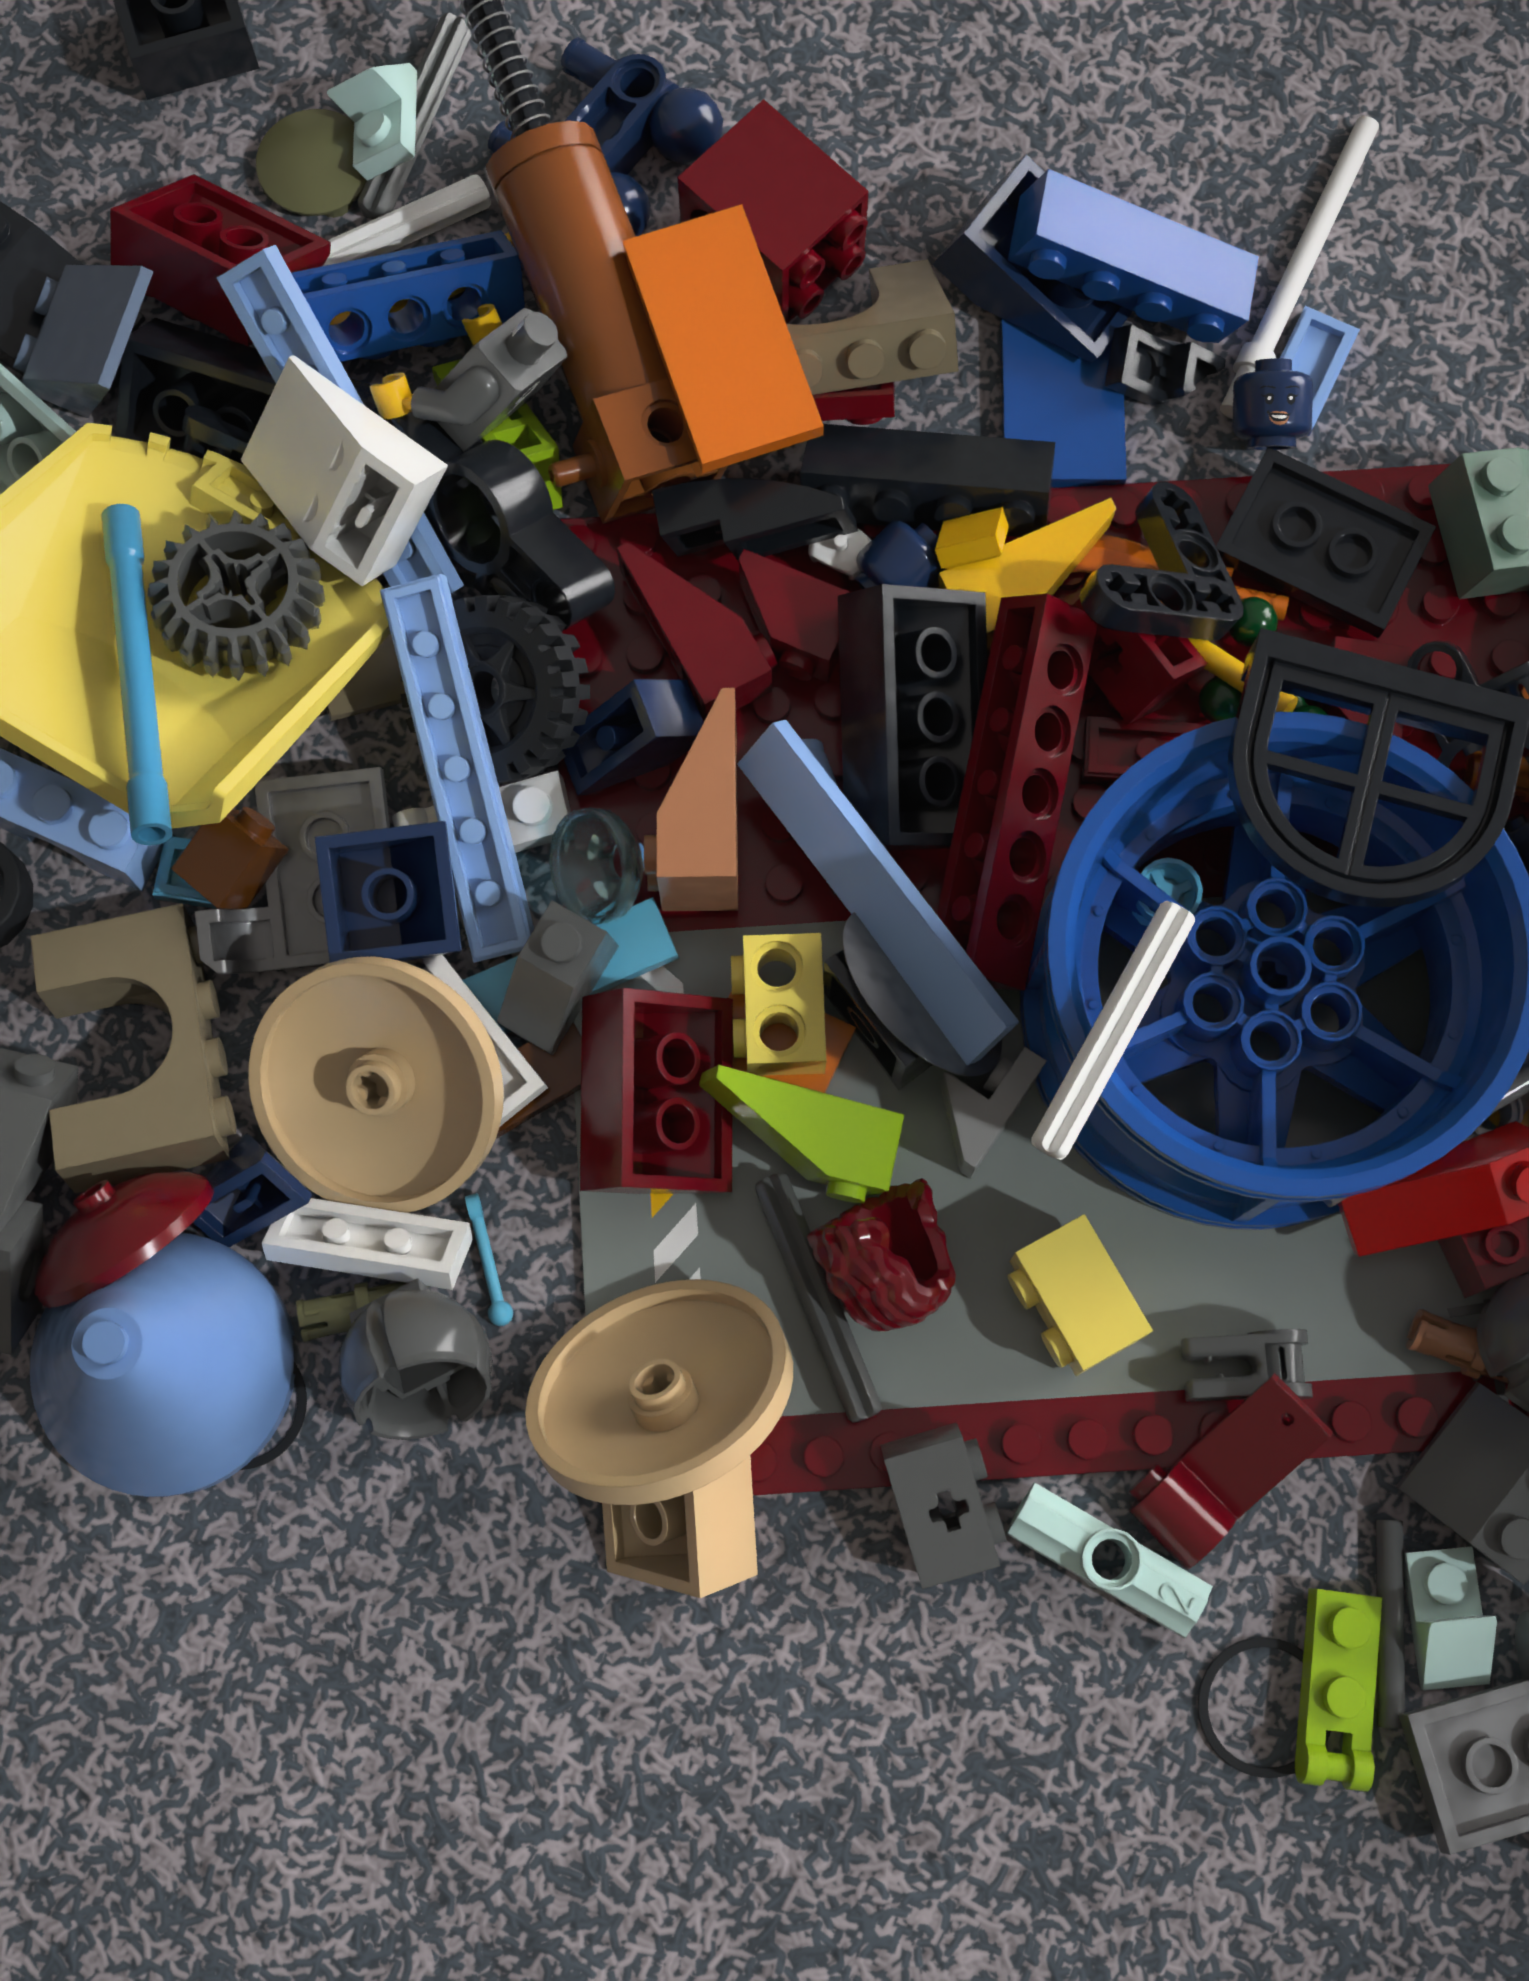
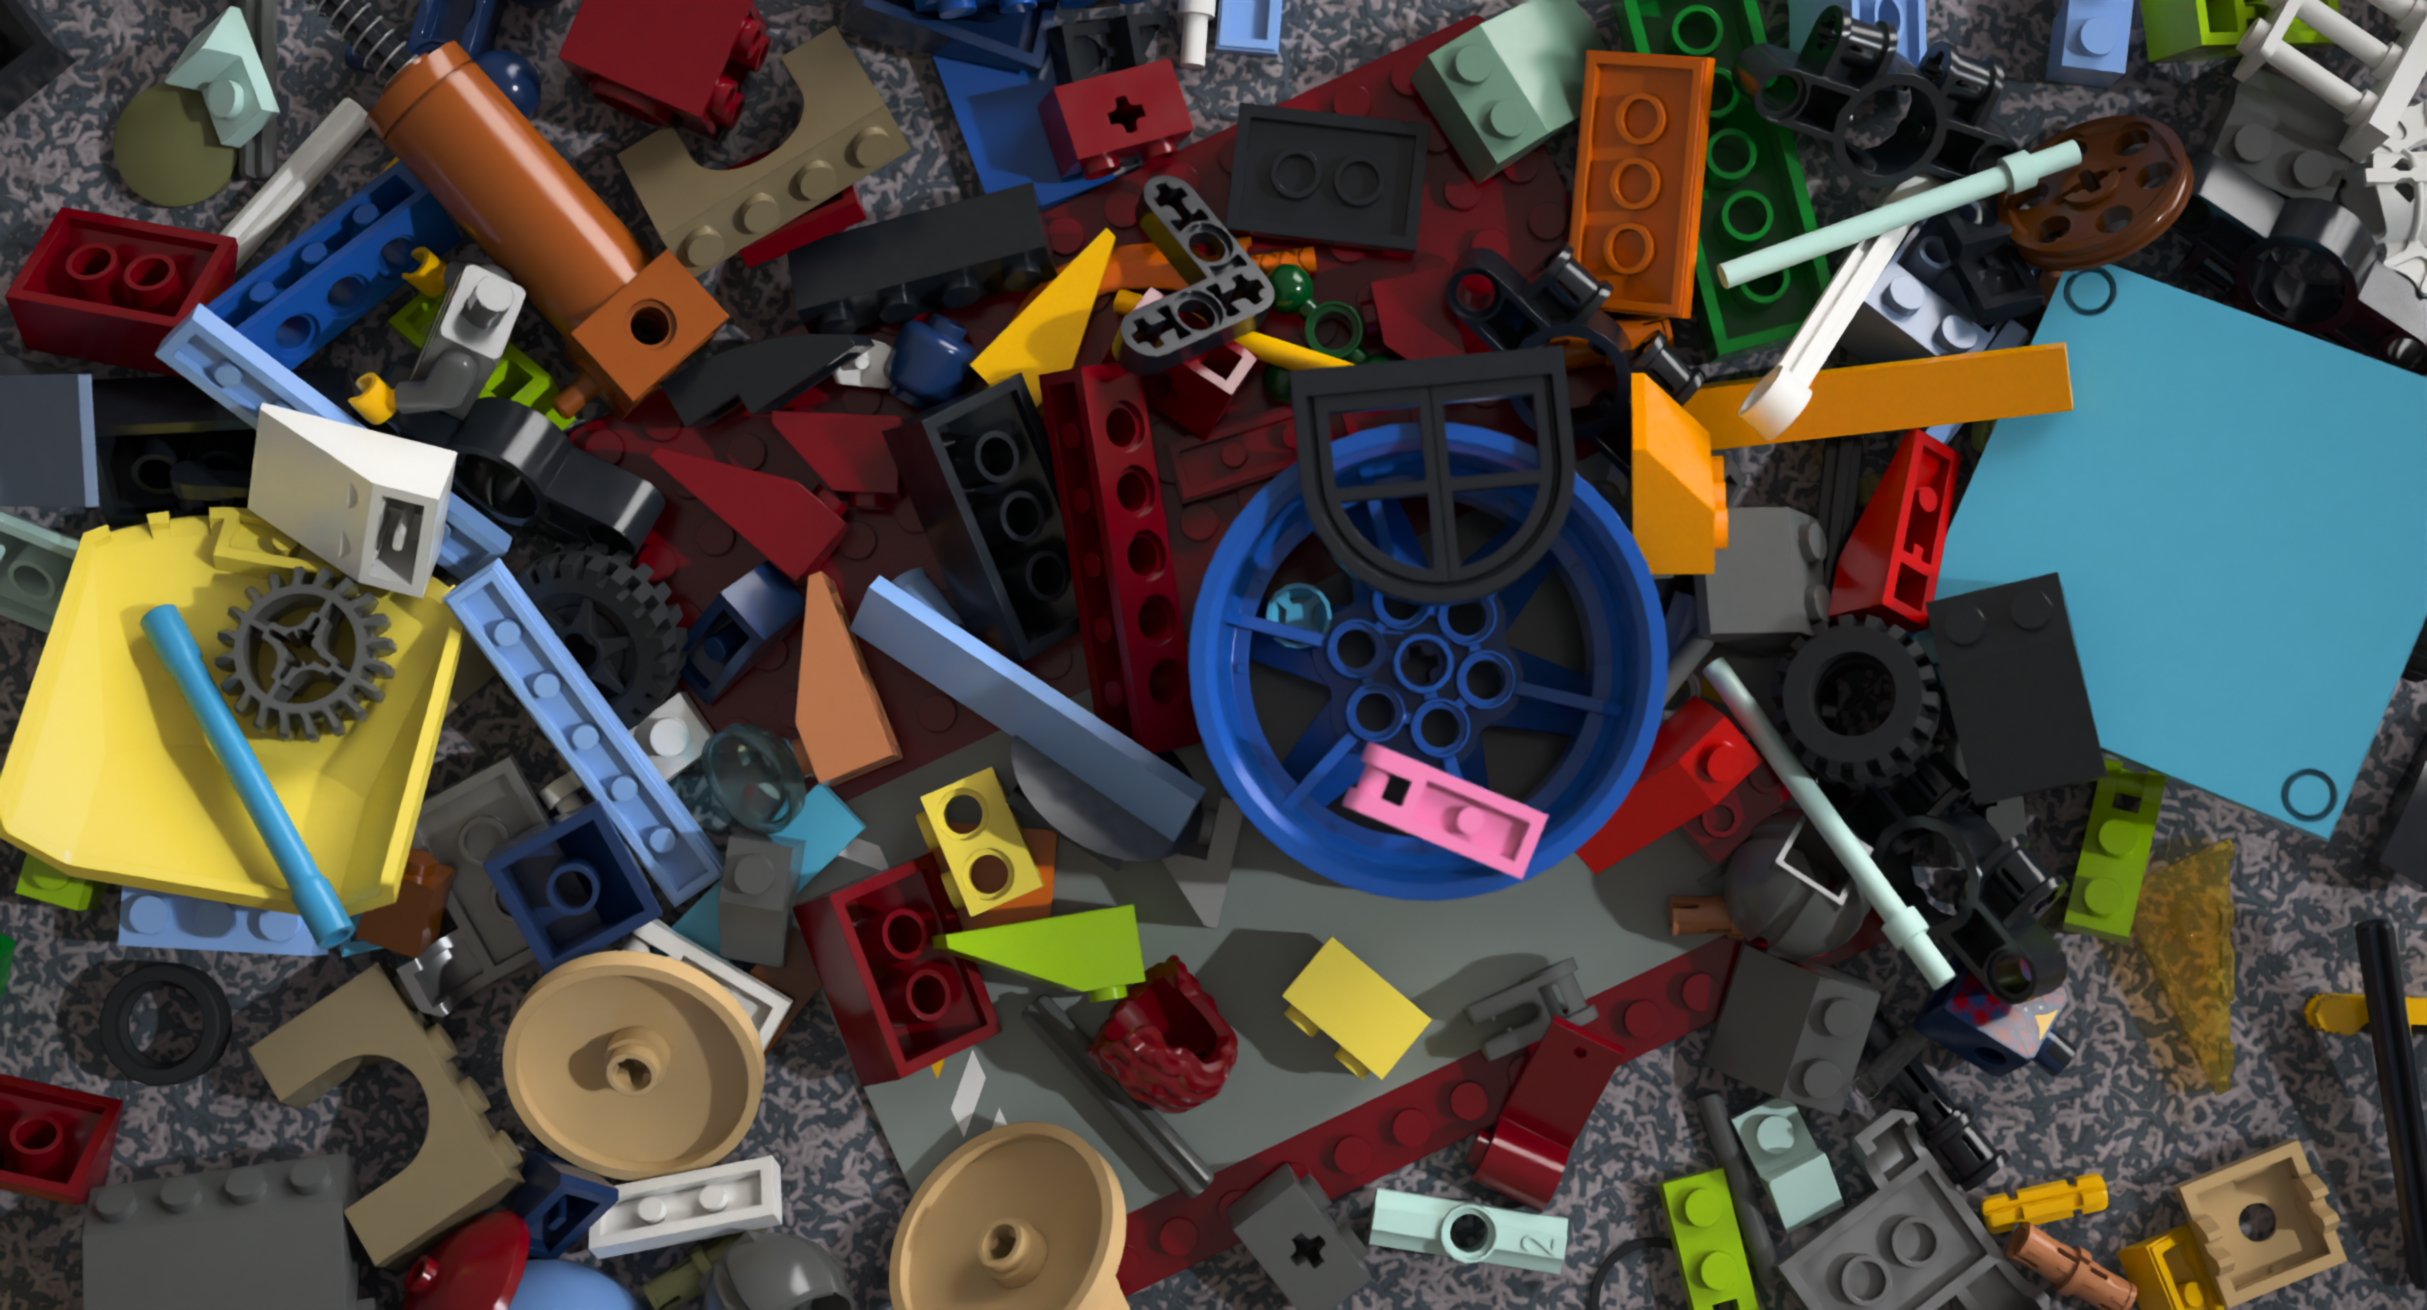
camera: 20 degrees left, 10 degrees up
(500, 1311) = (831, 1219): medium azure hinge -> none
(722, 338) = (670, 221): orange tile -> none
(972, 538) = (987, 317): yellow tile -> none
(1113, 1030) = (1290, 803): white axle -> none
(1148, 423) = (1140, 97): none -> dark red brick
(1267, 1094) = (1448, 811): none -> bright pink plate
(1272, 405) = (1229, 56): dark blue head -> none

